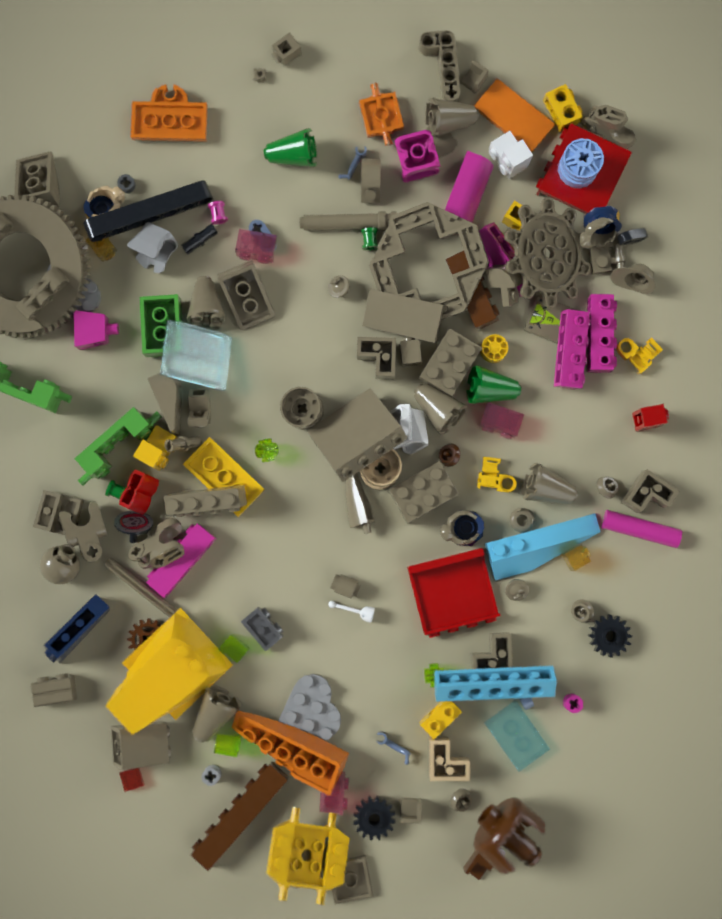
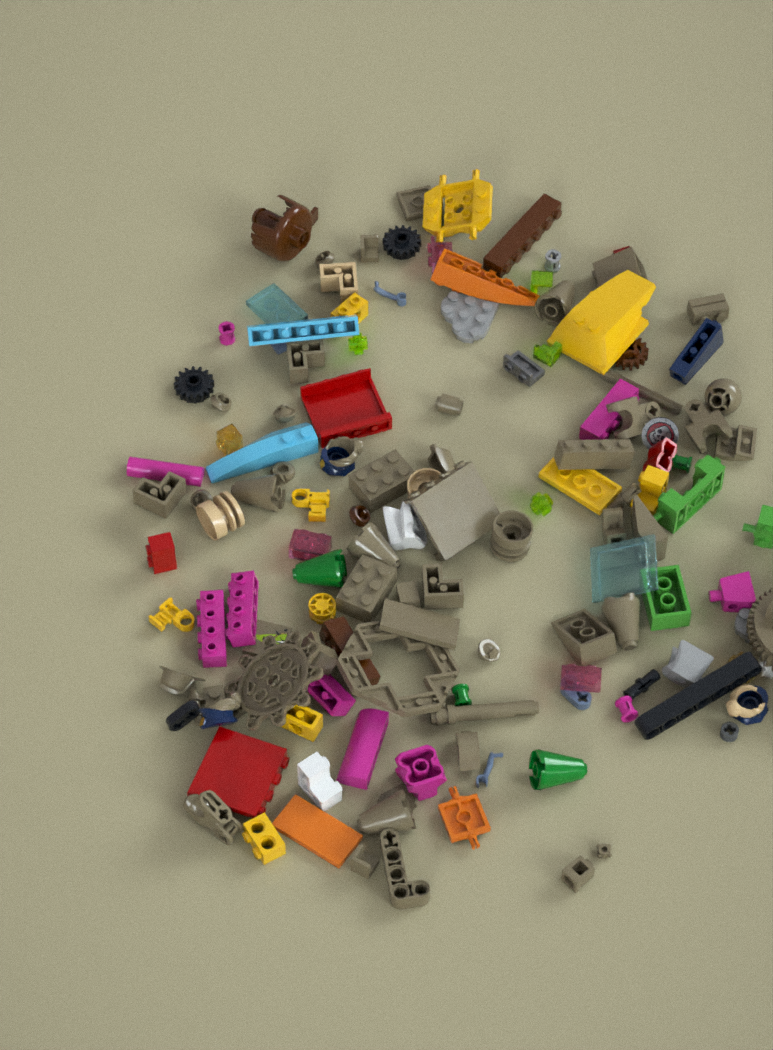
camera: 175 degrees right, 30 degrees down
(169, 117) = (695, 797): orange plate -> none
(366, 613) = (427, 386): white hinge -> none
(576, 172) = (245, 762): light blue wheel -> none
(592, 457) = (220, 515): none -> tan wheel

